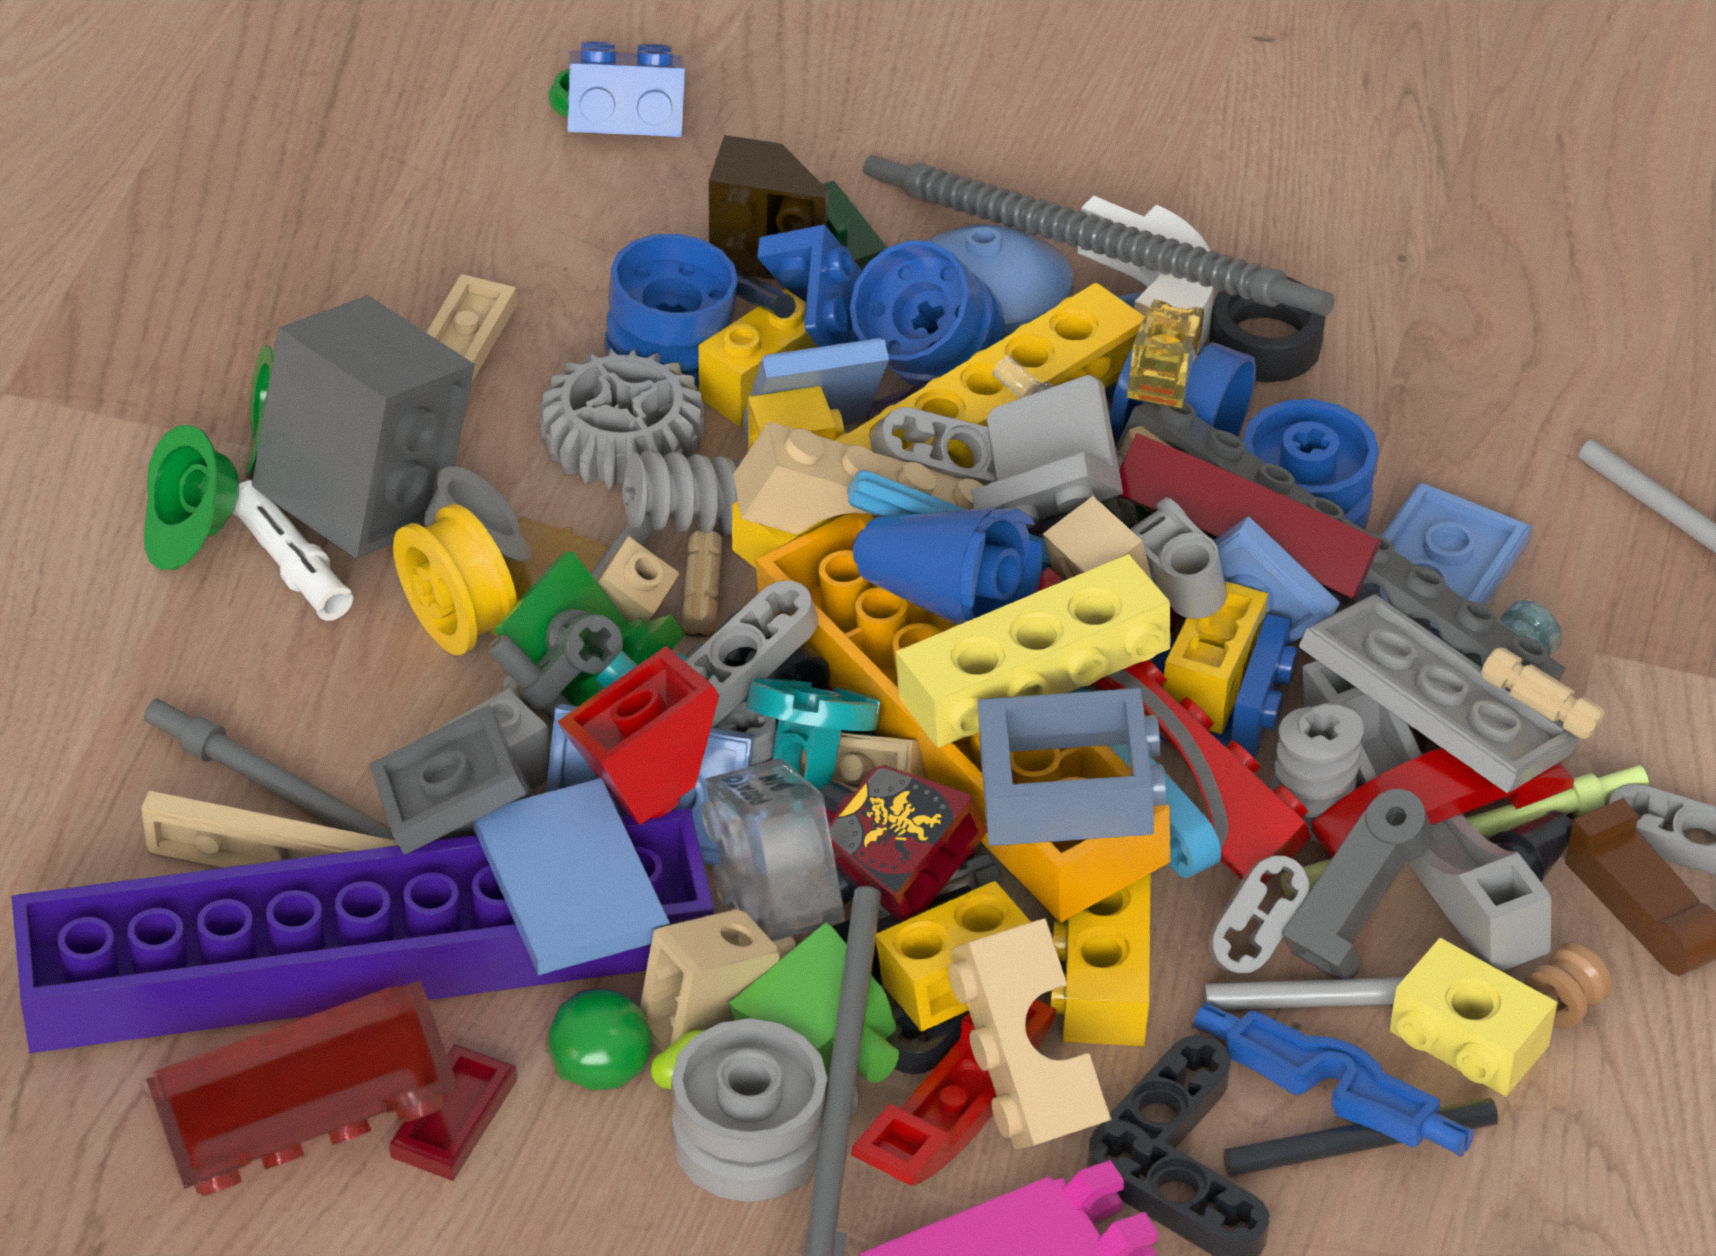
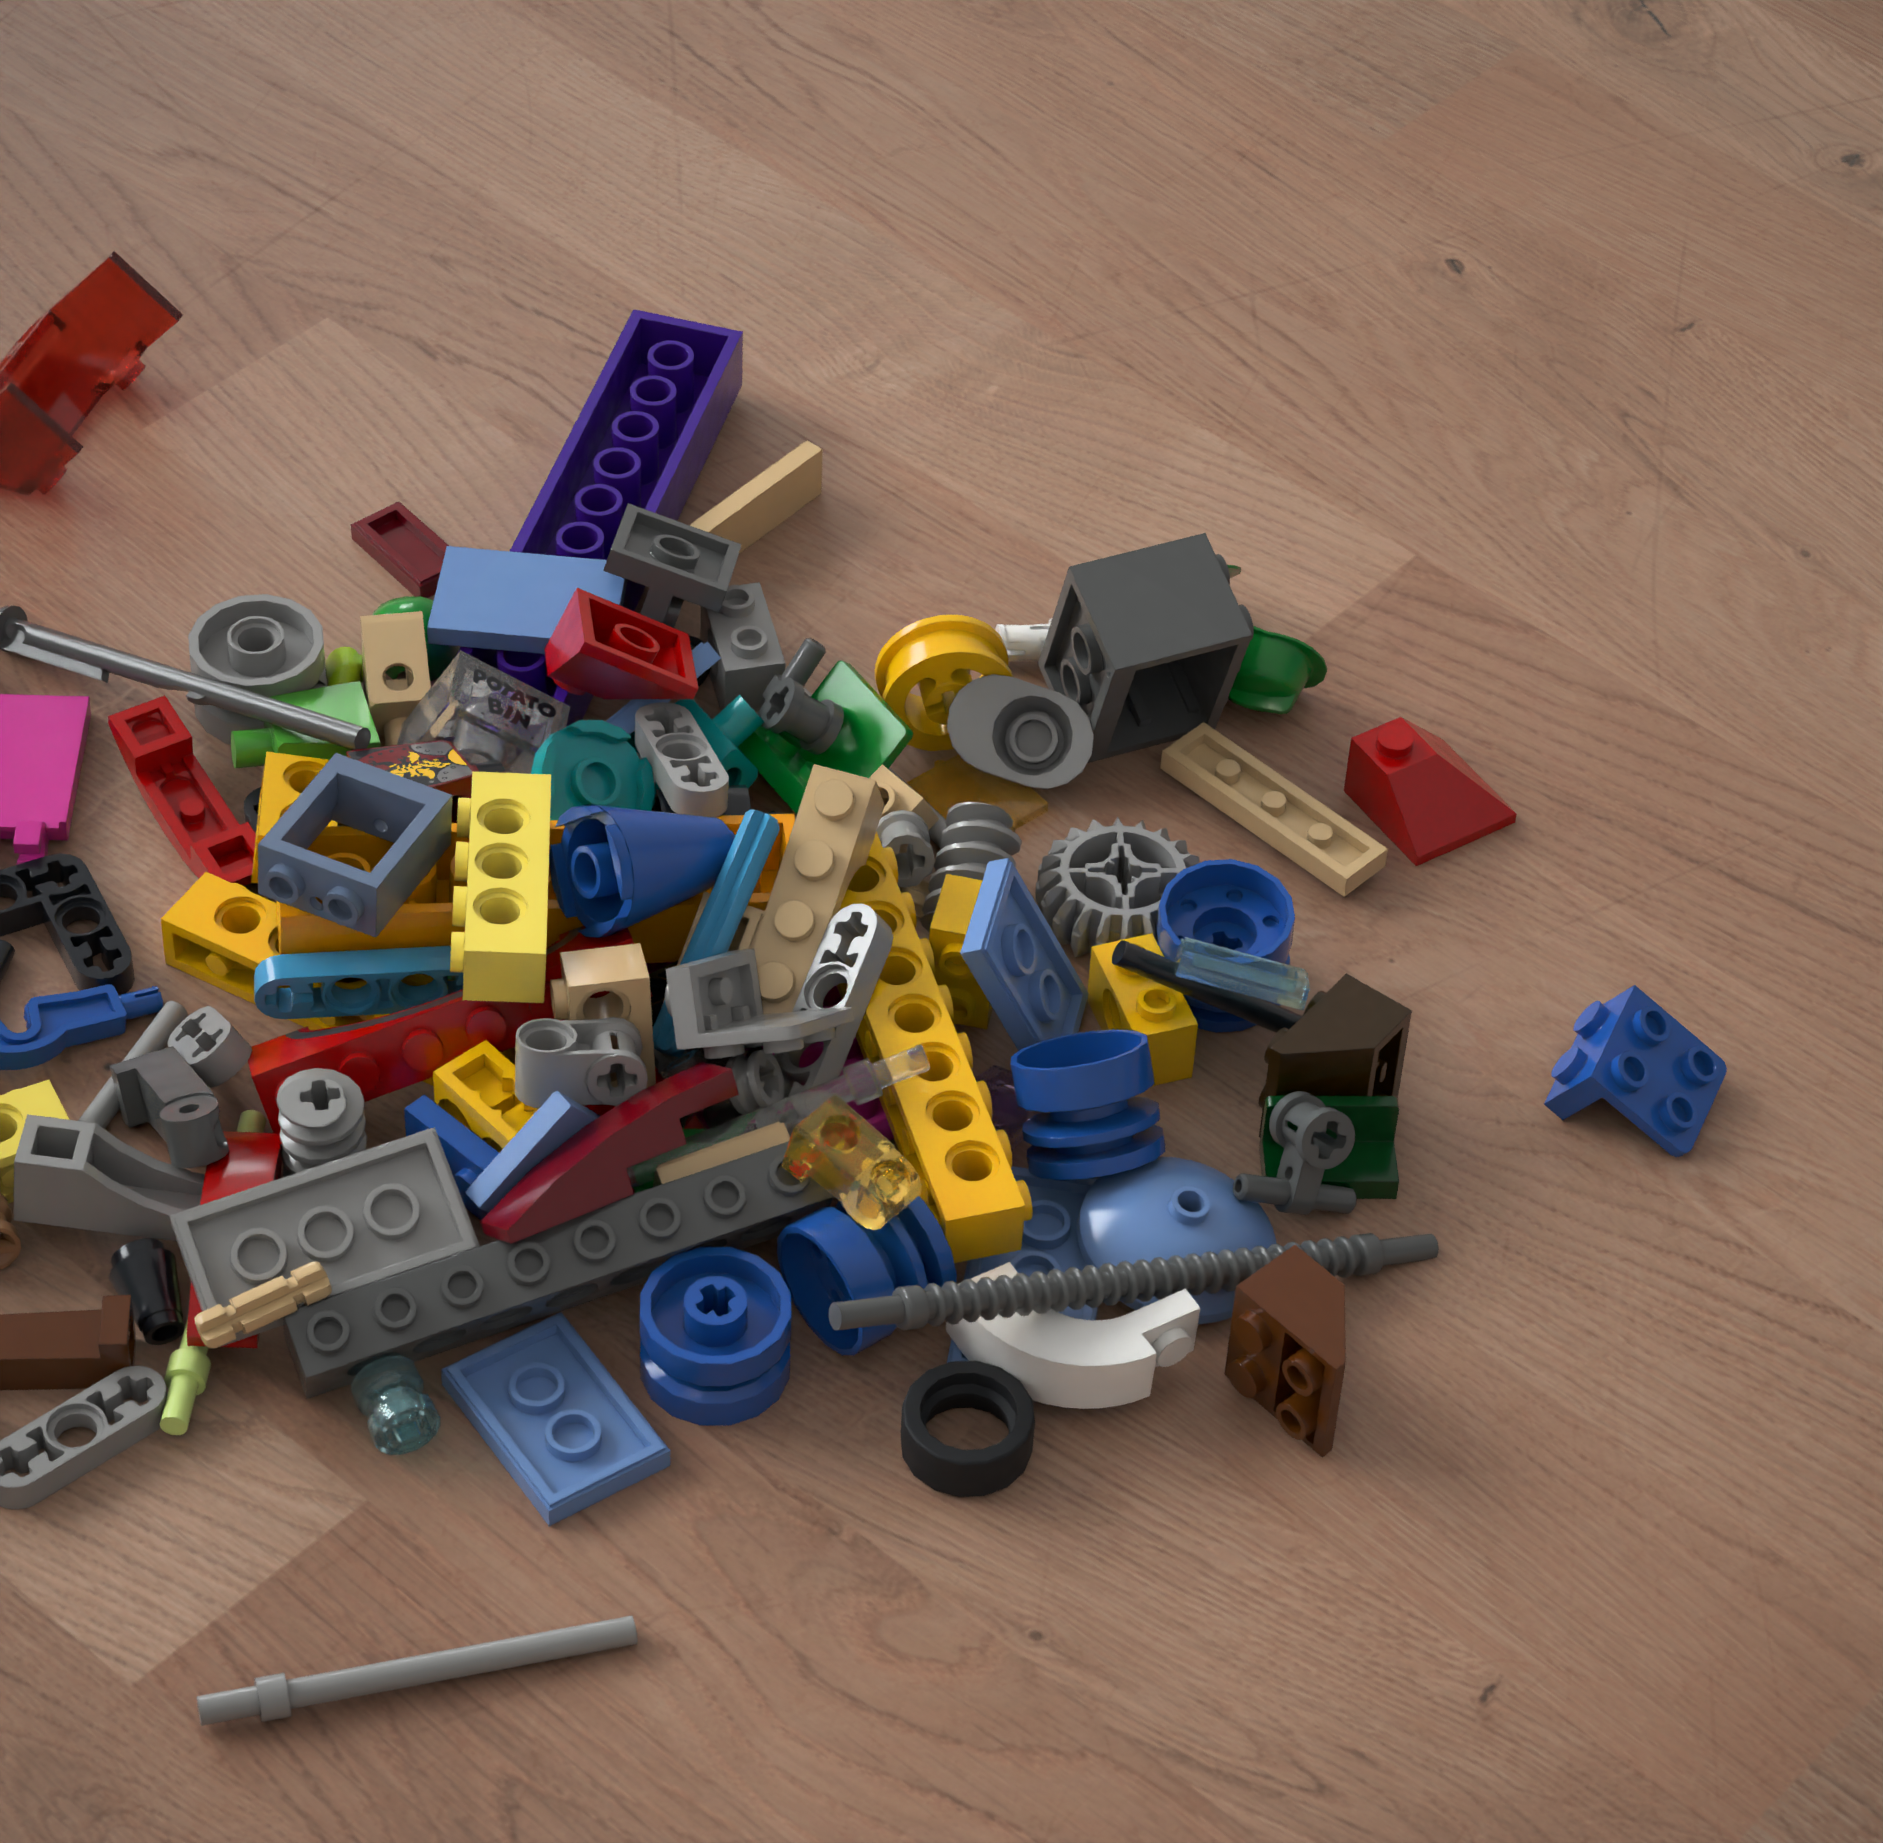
camera: 115 degrees right, 0 degrees up
(209, 741) = (890, 534): dark grey bar -> none
(299, 1084) = (478, 431): clear red windscreen -> none
(350, 272) = (1421, 791): none -> red slope
(692, 537) = (908, 828): none -> light grey bush
(752, 236) = (1242, 973): none -> clear light blue tile
(819, 273) = (1191, 1047): blue bracket -> none
(871, 200) = (1304, 1159): none -> dark grey piece
(1034, 1093) = (212, 792): tan arch -> none
(1077, 143) = (1291, 1345): none -> reddish brown slope

